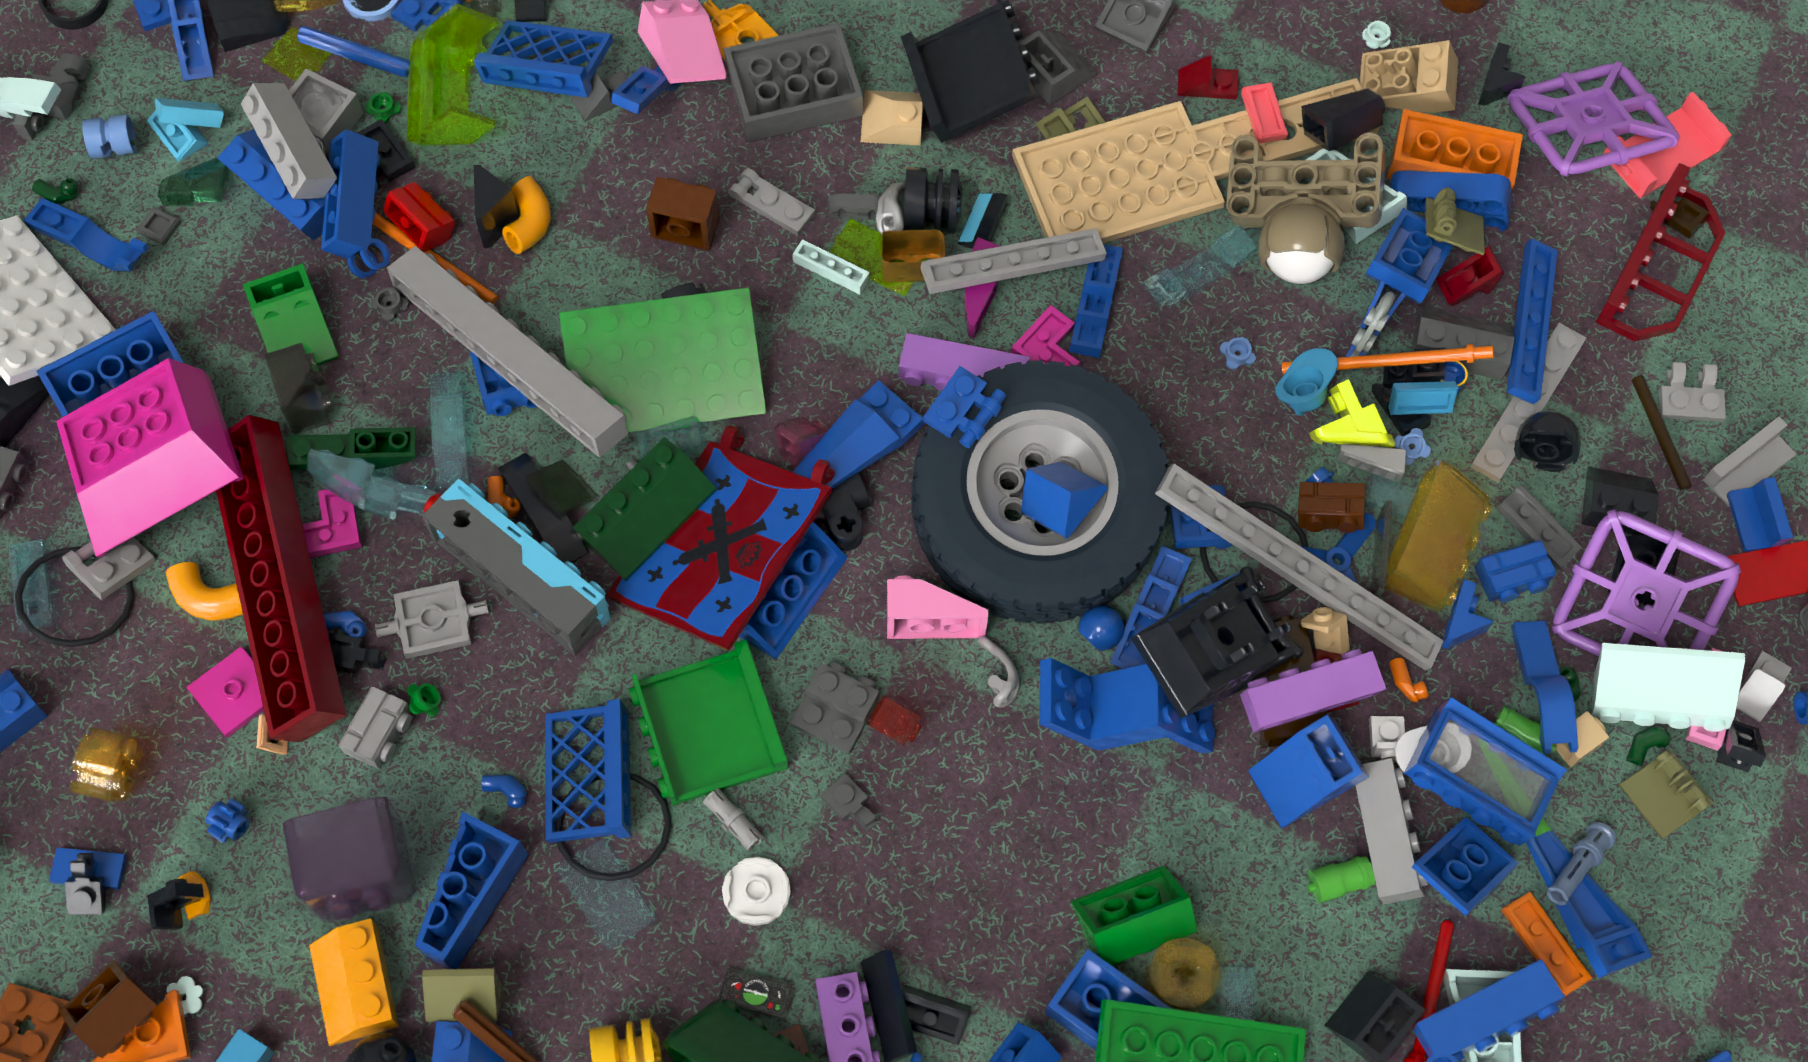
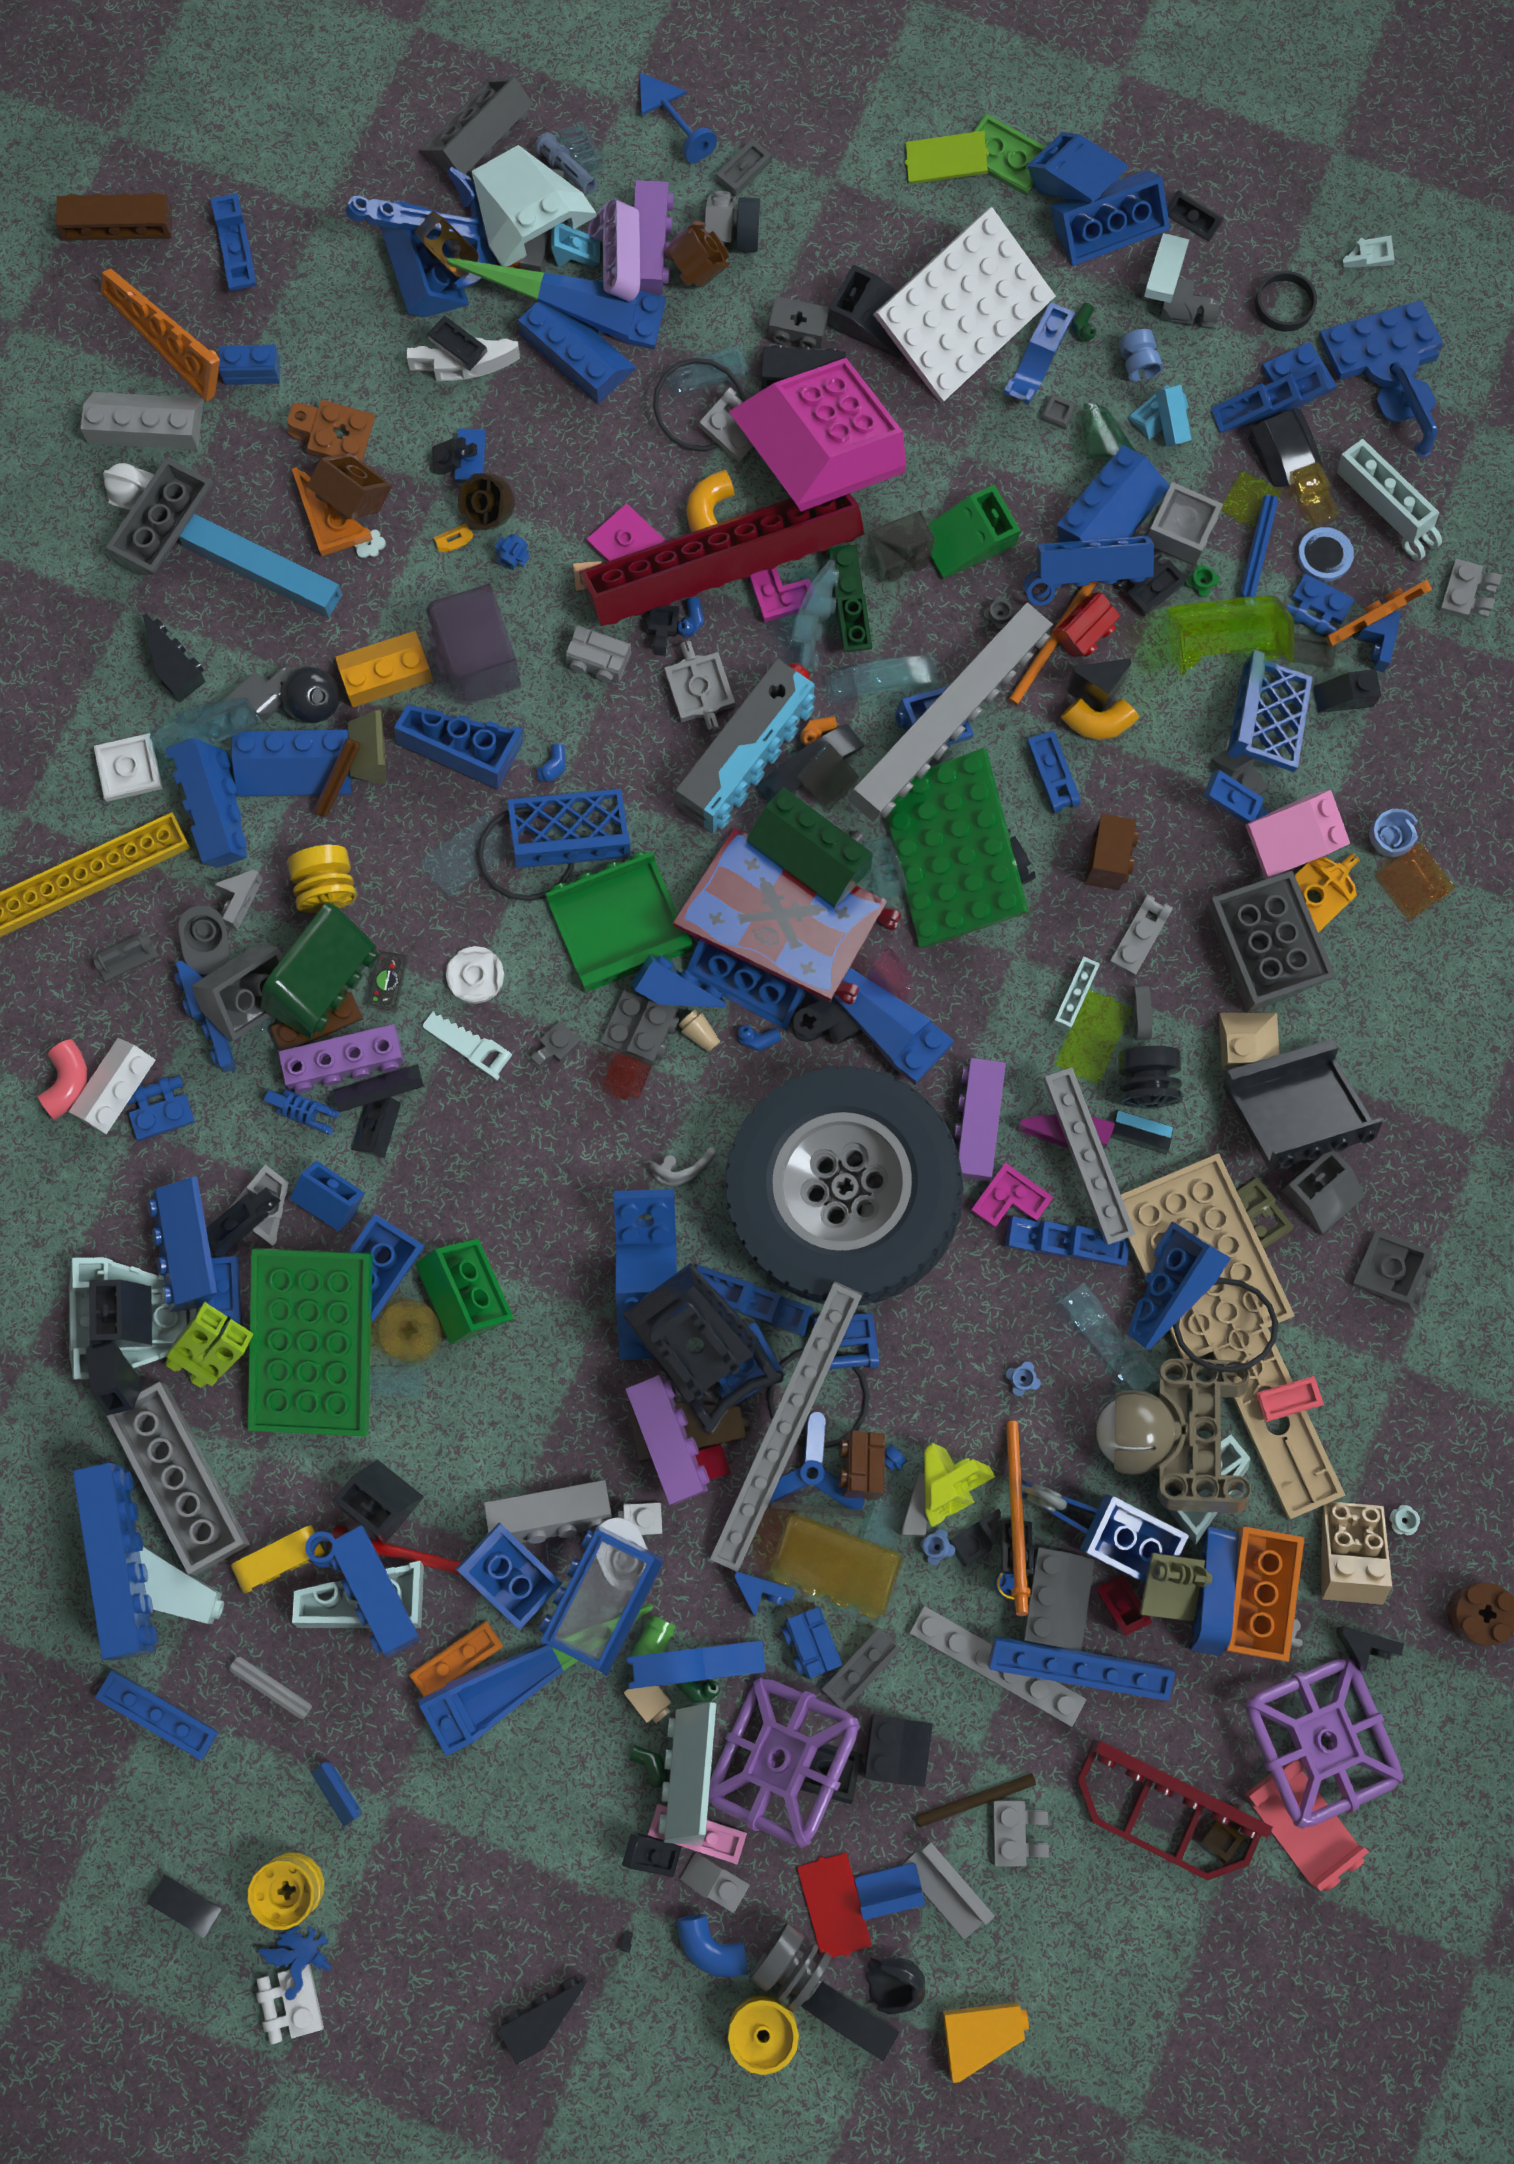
camera: 85 degrees right, 10 degrees up
(47, 493) = (784, 362): none -> black slope
(105, 764) = (550, 450): clear yellow brick -> none
(107, 363) = (906, 396): blue slope -> none
(158, 844) = (486, 501): none -> dark brown cylinder
(167, 903) = (437, 519): black bracket -> none
(288, 140) = (1136, 496): light grey brick -> none
(424, 699) = (626, 696): green plate -> none
(581, 266) = (1053, 771): none -> blue plate
(733, 819) = (535, 950): light grey pin -> none
(796, 666) = (670, 987): none -> blue slope
(839, 903) = (467, 1044): none -> light aqua piece
(843, 644) = (699, 1030): none -> tan cone
(859, 584) = (758, 1041): none -> blue arm
(889, 213) = (1133, 1037): light grey piece -> none
(902, 244) = (1100, 1059): pearl gold piece -> none
(927, 611) = (730, 1084): bright pink slope -> none
(955, 403) = (906, 1094): blue plate -> none
(1059, 496) = (833, 1200): blue slope -> none
(1102, 627) = (726, 1254): blue piece -> none
(1144, 195) = (1180, 1277): none -> blue wedge
(1207, 82) = (1326, 1346): dark red slope -> none
(1223, 187) = (1257, 1359): none -> black piece
(1307, 380) = (993, 1441): dark azure piece -> none
(1308, 771) = (598, 1442): blue slope -> none
(1329, 630) = (737, 1458): tan bracket -> none
(1339, 879) = (504, 1471): bright green piece -> none
(1342, 118) = (1284, 1476): black slope -> none
(1402, 680) = (693, 1535): orange arm -> none
(1423, 397) = (983, 1554): dark azure tile -> none
(1549, 440) = (952, 1679): black cylinder -> none
(1563, 886) = (538, 1695): sand blue pin -> none
(1666, 794) = (602, 1781): olive hinge -> none

